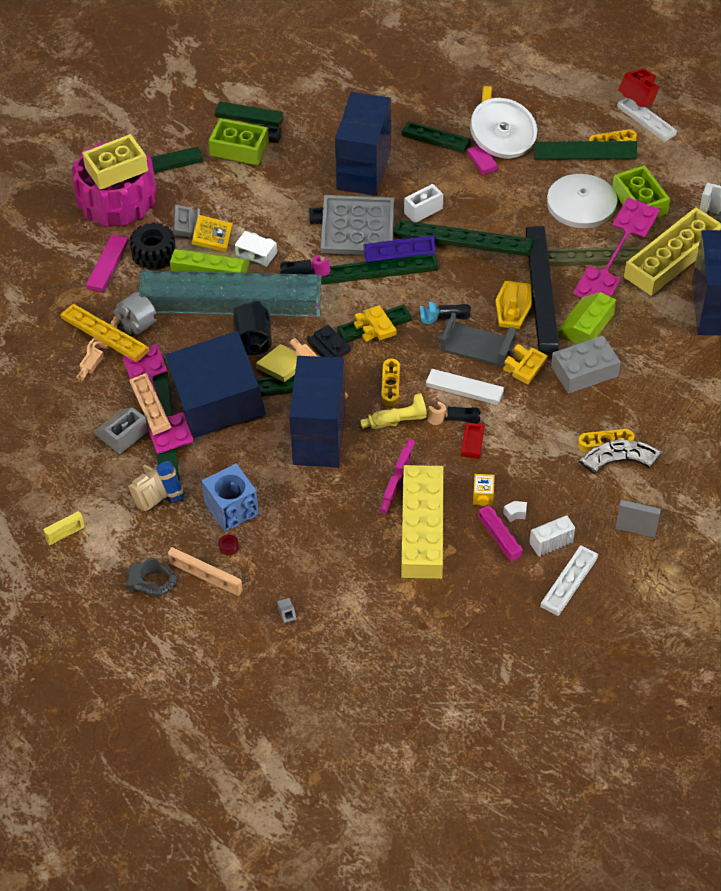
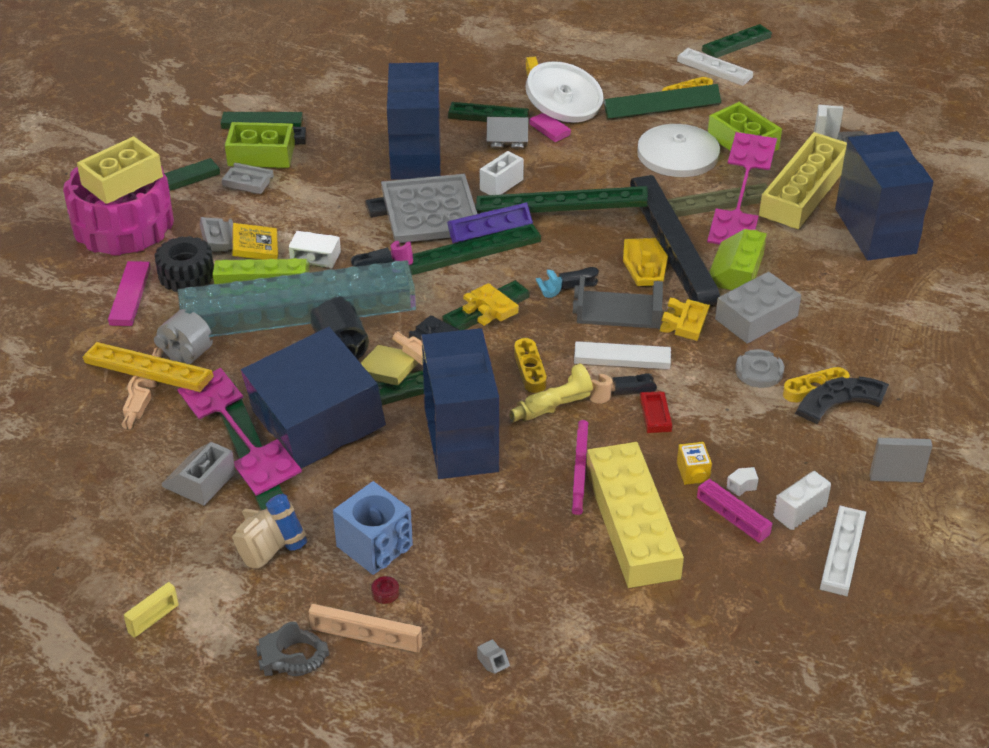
camera: 15 degrees left, 10 degrees down
(150, 404) = (232, 436): light nougat tile -> none
(222, 171) = (247, 178): none -> light grey plate
(443, 161) = (507, 132): none -> light grey slope
(568, 418) = (759, 368): none -> light grey tile
(639, 87) = (699, 35): red brick -> none
(680, 93) = (736, 41): none -> dark green tile

